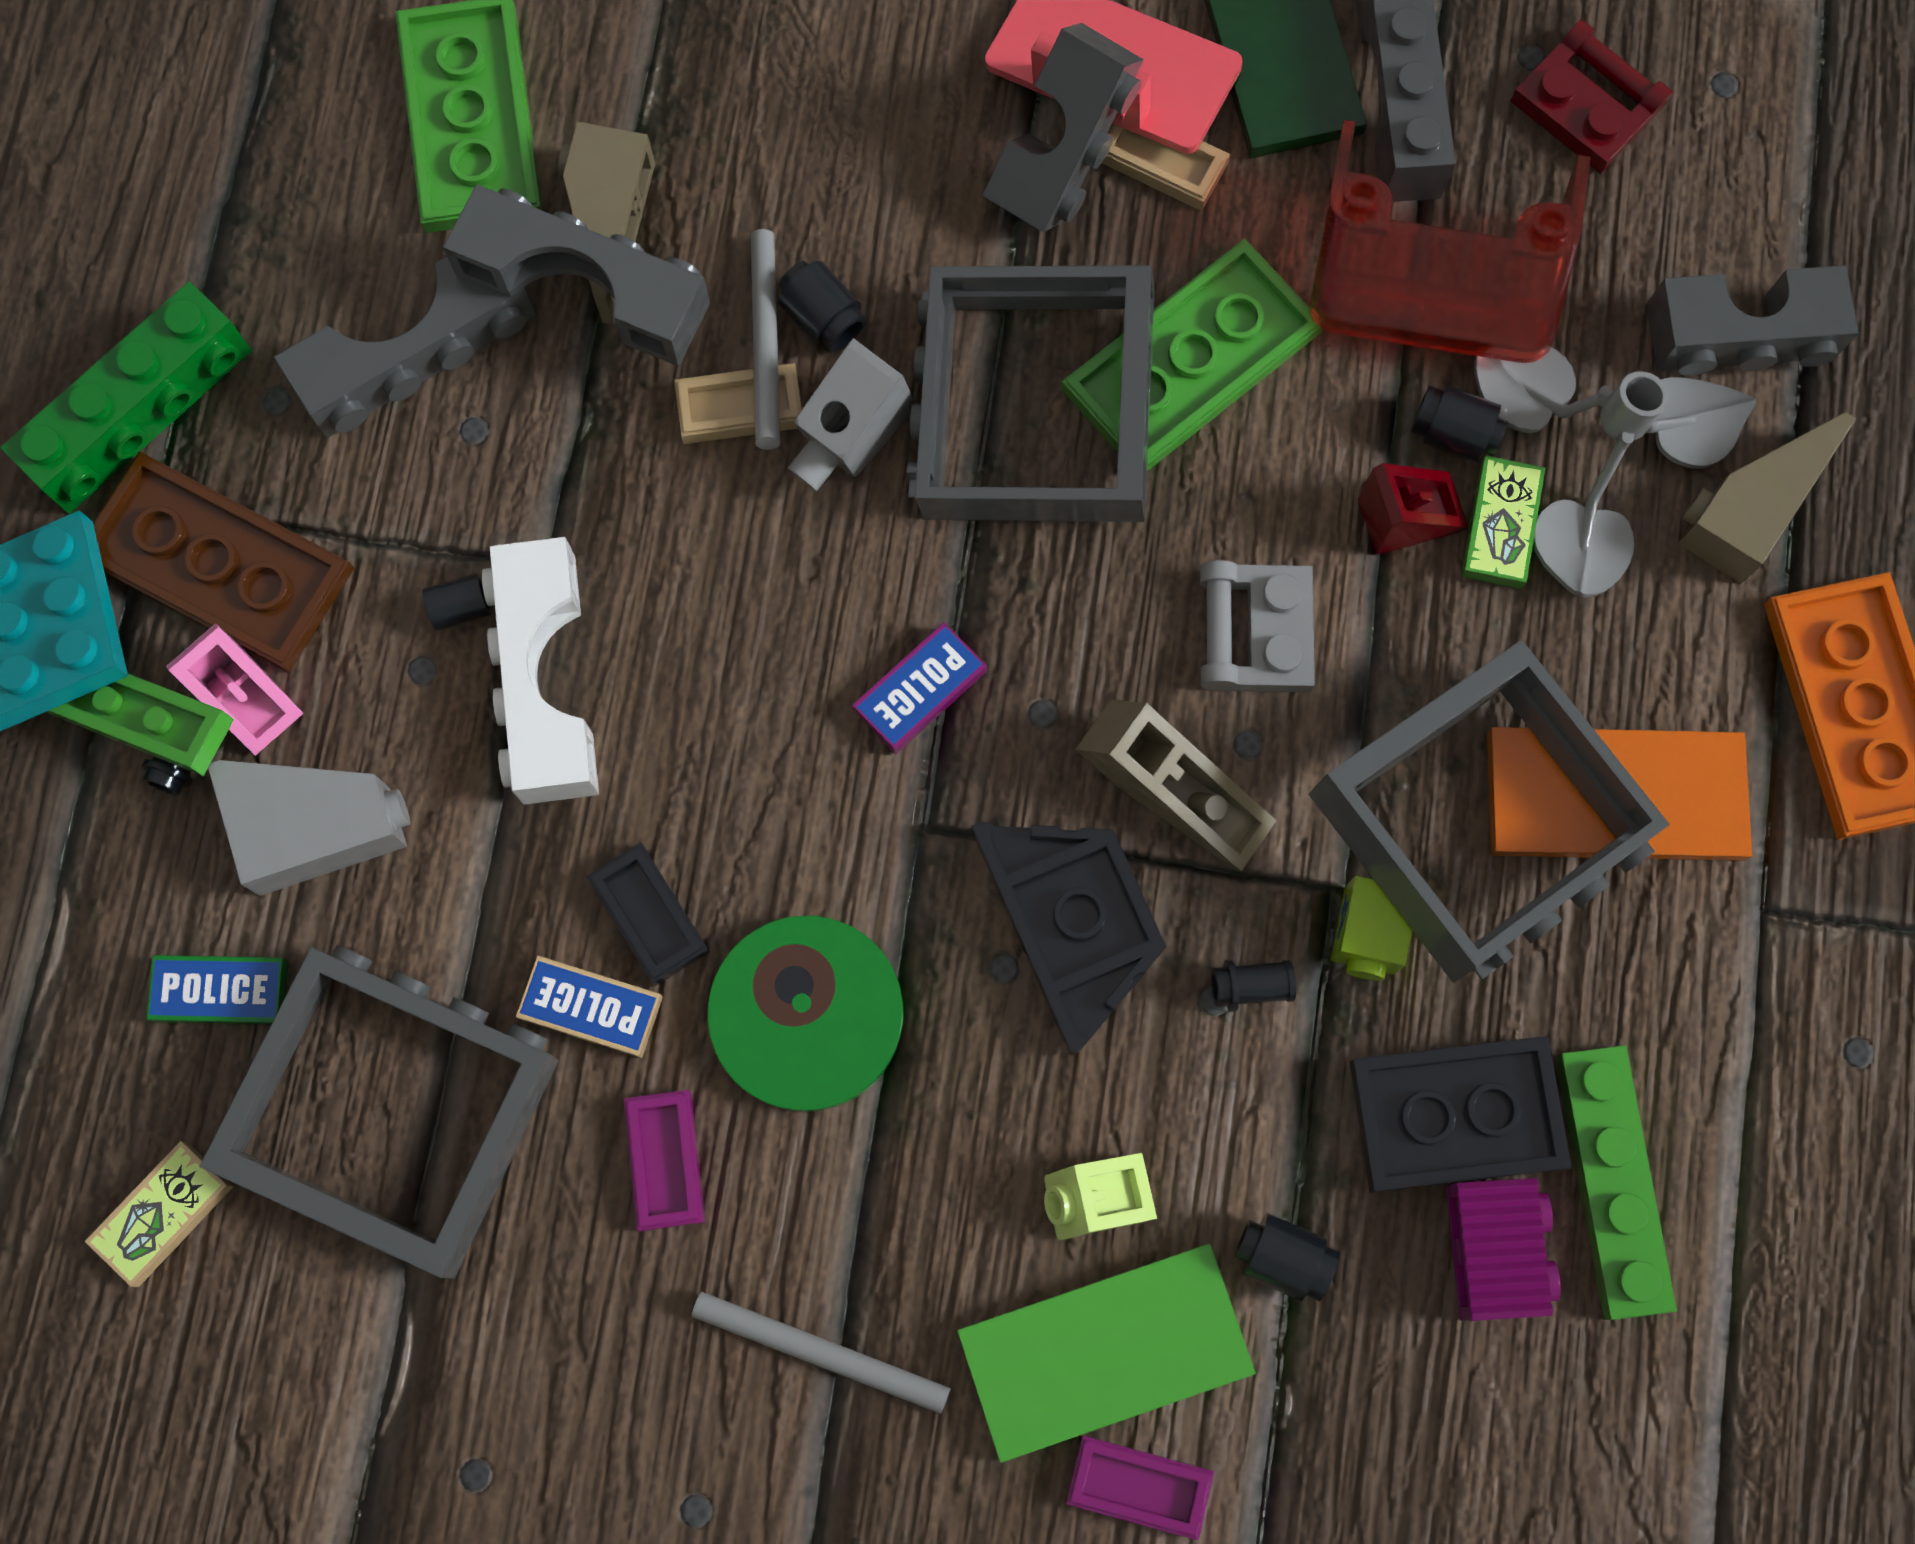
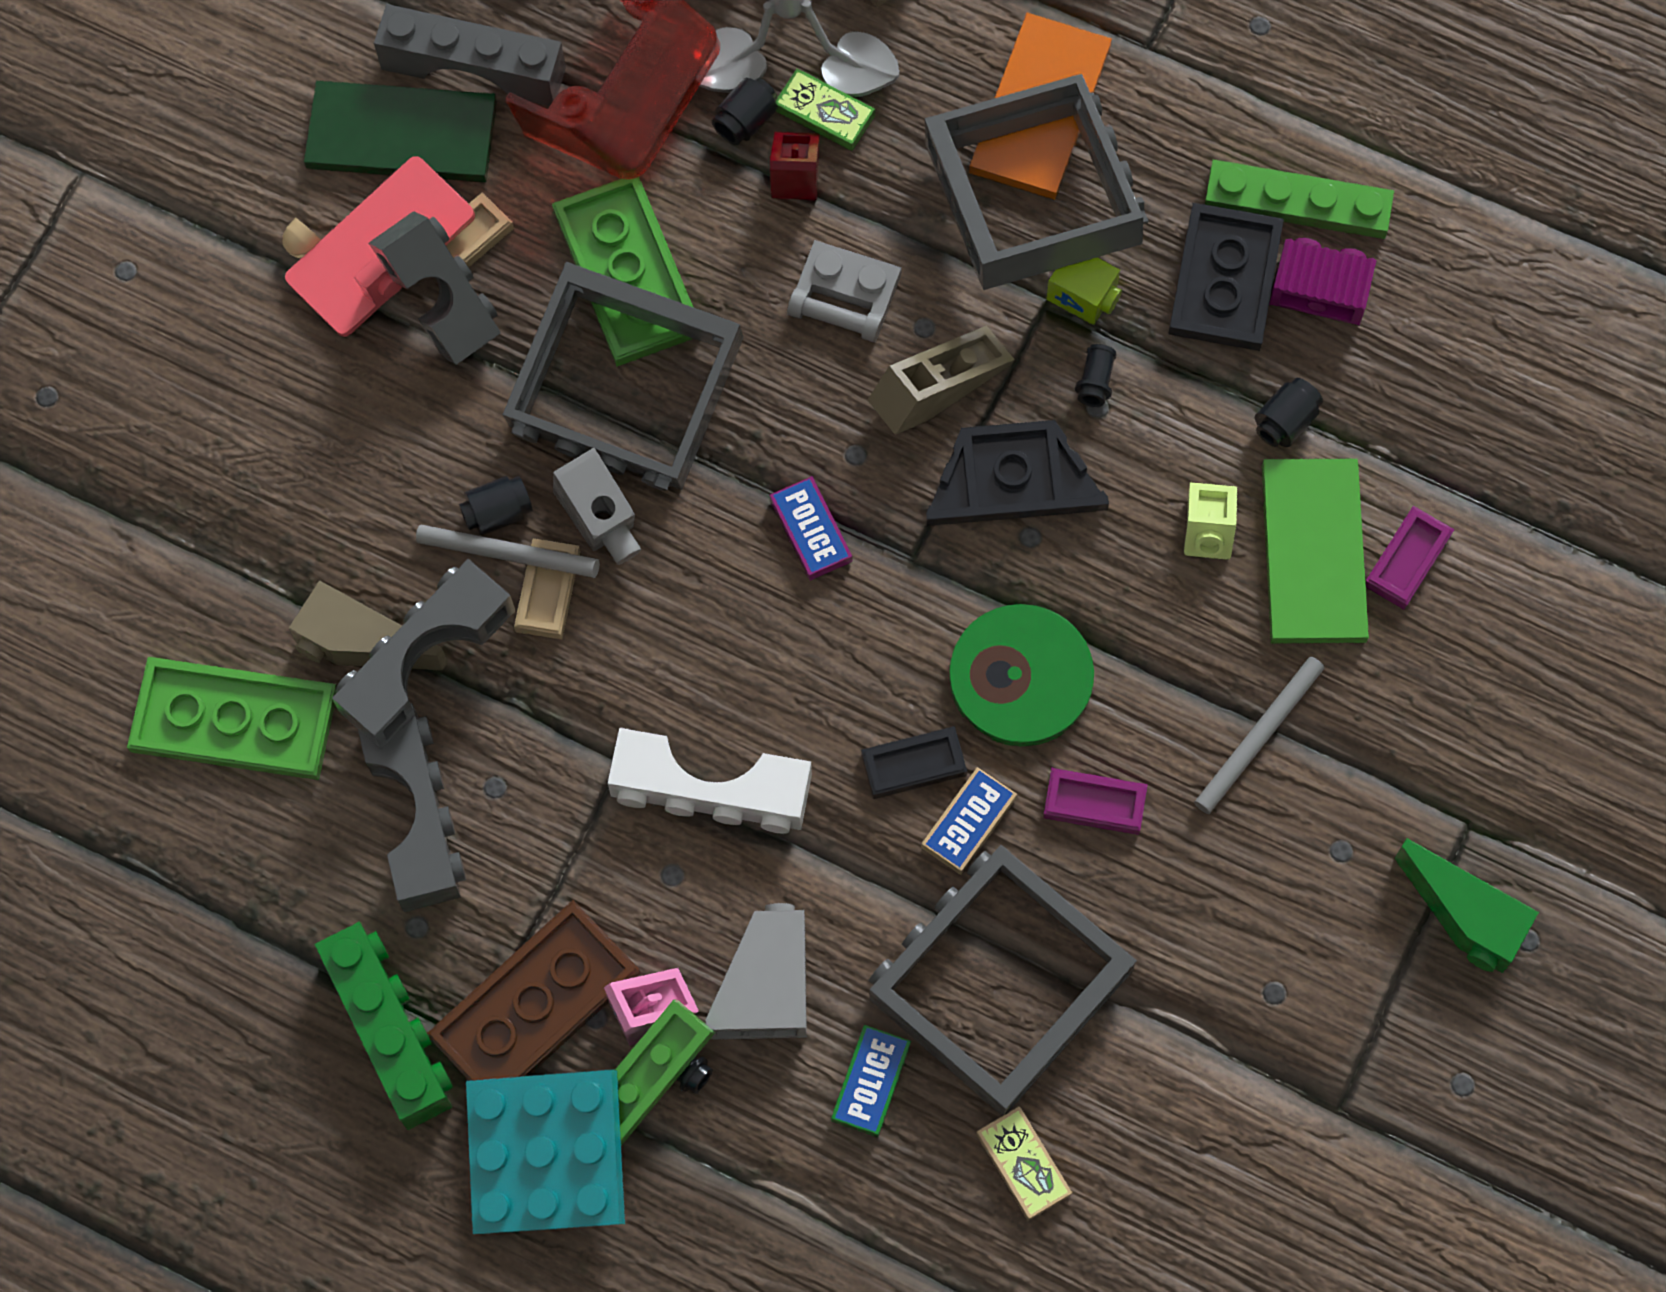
camera: 70 degrees left, 5 degrees down
(455, 602) = (632, 830): black hinge -> none

